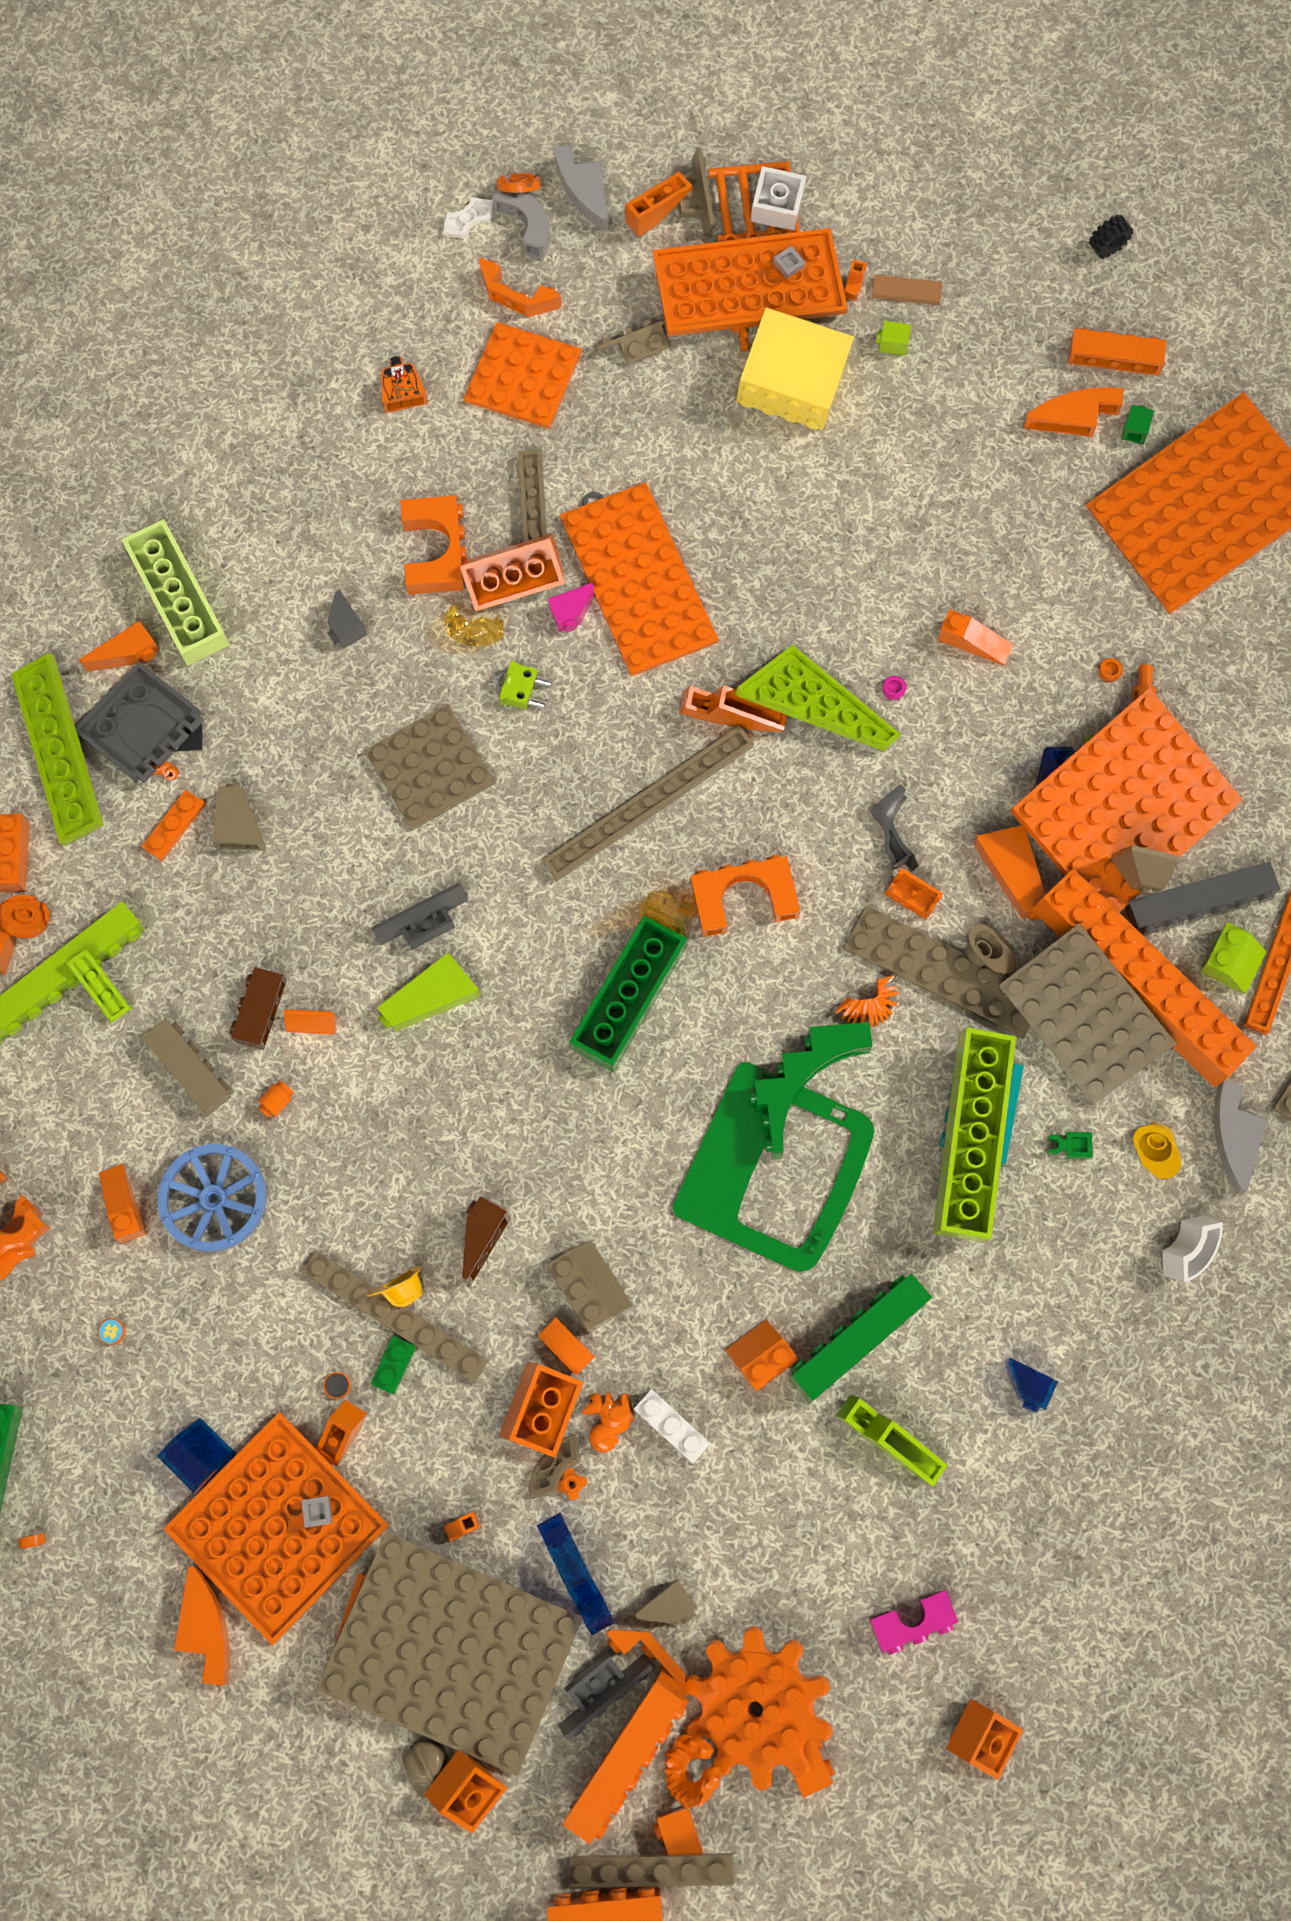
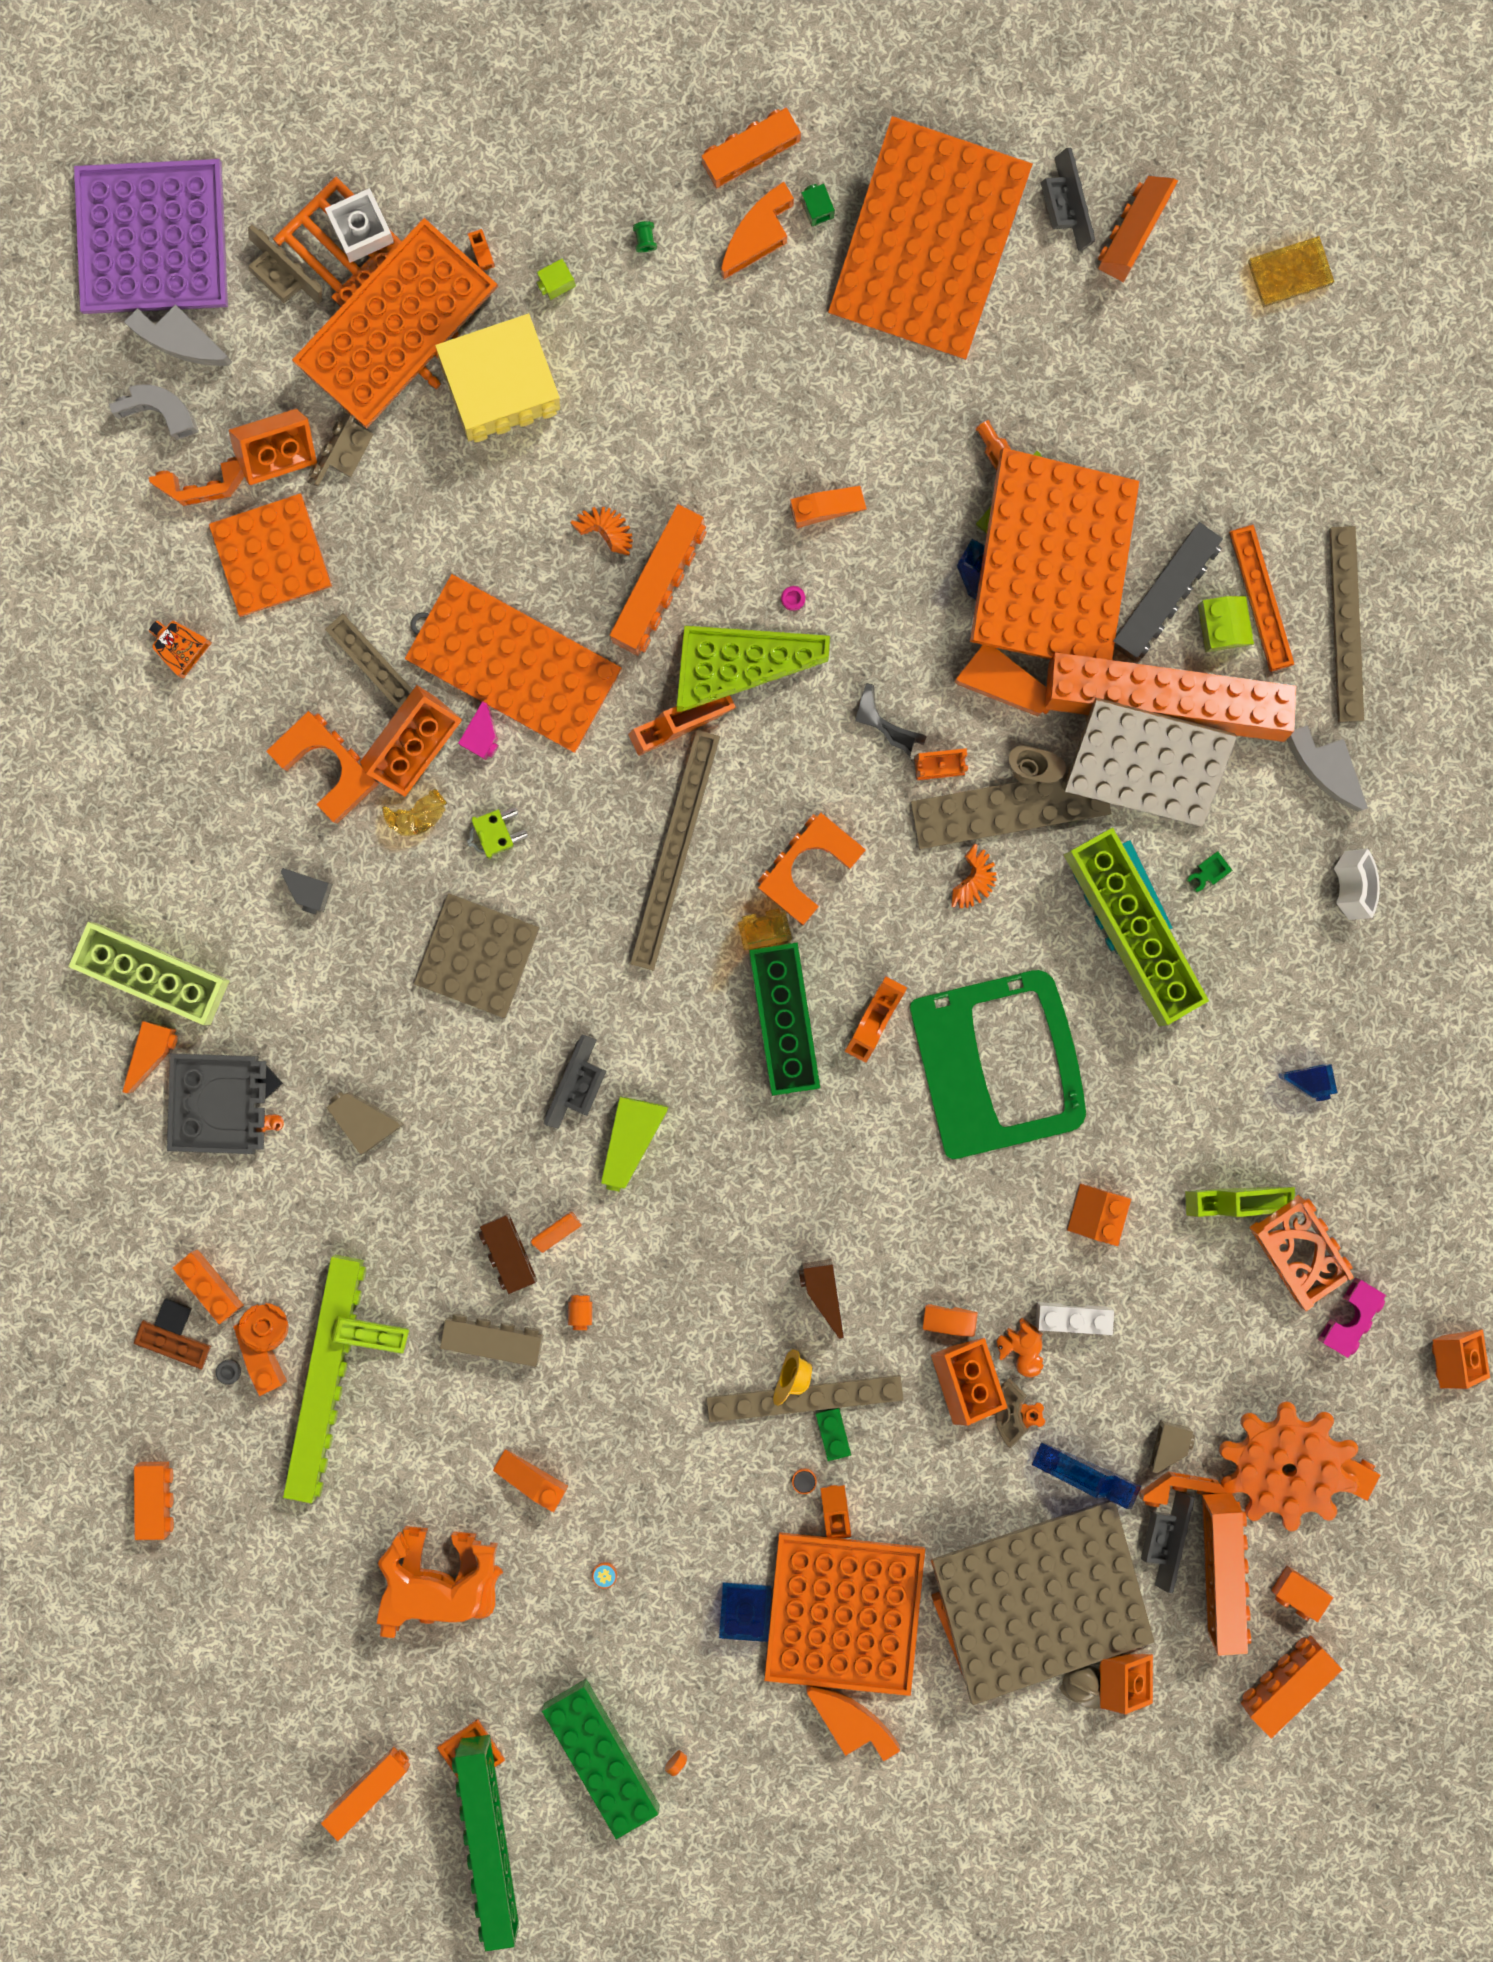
camera: 40 degrees left, 15 degrees up
(57, 749) = (168, 1176): lime plate -> none
(173, 825) = (314, 1162): orange plate -> none
(207, 1193) = (593, 1429): medium blue wheel -> none
(317, 1511) = (867, 1583): light grey plate -> none
(462, 1526) = (979, 1506): orange piece -> none
(475, 213) = (99, 453): white tile -> none
(518, 183) = (121, 379): orange tile -> none
(588, 300) = (273, 446): none -> orange slope
(589, 1286) = (932, 1264): dark tan slope -> none
(622, 110) = (150, 236): none -> medium lavender plate
(652, 1870) = (1299, 1631): dark tan plate -> none
(656, 203) = (256, 307): orange slope -> none
(679, 1778) = (1270, 1554): orange piece -> none
(702, 1051) = (875, 1019): none -> orange arch
(789, 262) = (416, 281): light grey plate -> none
(792, 534) = (608, 527): none -> orange hair
(798, 594) = (658, 580): none -> orange brick
(825, 1047) = (962, 1010): green arch -> none
(860, 1338) = (1163, 1147): green brick -> none
(886, 1552) = (1271, 1242): none -> orange fence
(907, 289) = (530, 222): medium nougat tile -> none
(985, 357) = (644, 236): none -> green bush
(1110, 670) = (954, 447): orange tile -> none
(1111, 236) = (667, 39): black tyre -> none
(1145, 868) = (1112, 610): dark tan slope -> none
(1158, 1150) = (1277, 825): yellow piece -> none

